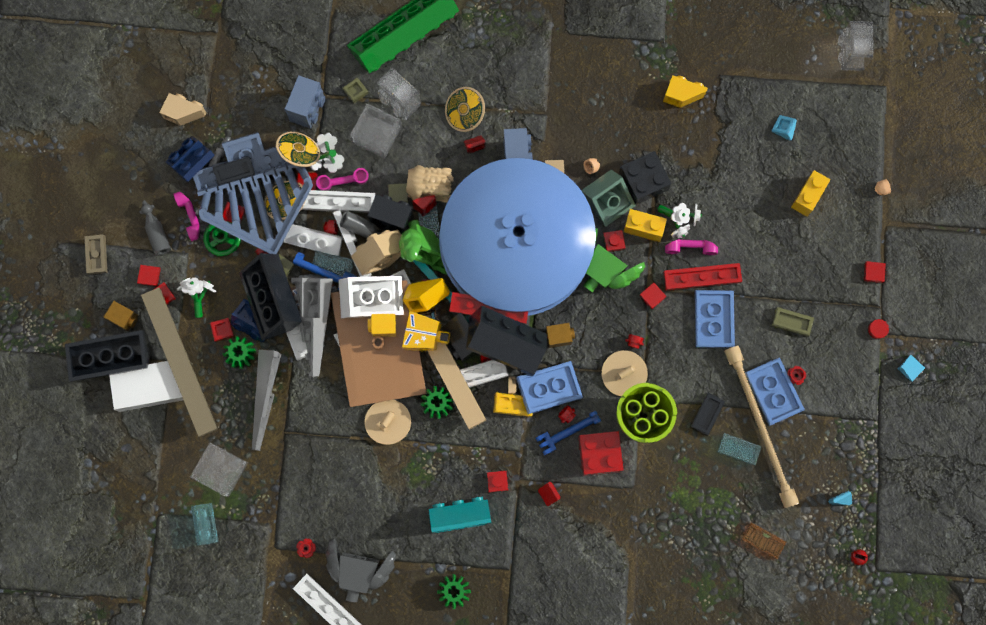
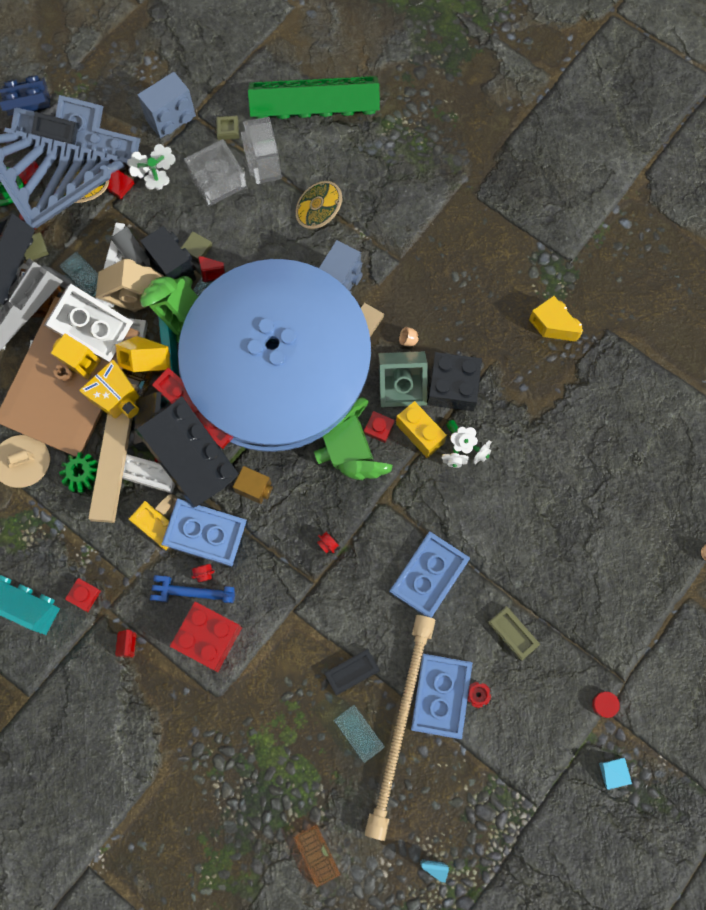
camera: 35 degrees right, 5 degrees down
(181, 111) = (51, 49): tan slope -> none
(298, 149) = (125, 142): shield -> none
(298, 260) = (51, 249): blue hinge -> none
(314, 240) = (81, 239): white plate -> none
(325, 183) = (135, 196): dark pink bar -> none
(331, 227) = (104, 238): red hinge -> none
(336, 200) = (126, 213): white plate -> none
(429, 181) = (227, 247): tan piece -> none
(474, 144) = (305, 246): red slope -> none
(623, 371) = (294, 570): tan shield -> none
(652, 296) = (380, 508): red tile -> none
(653, 402) = (264, 609): lime cone -> none
(702, 276) = (446, 521): red plate -> none
(708, 247) = (473, 495): dark pink bar -> none
(785, 127) = (643, 423): medium azure slope -> none
(810, 193) = (624, 507): yellow brick -> none
(874, 272) = (642, 638): red tile -> none

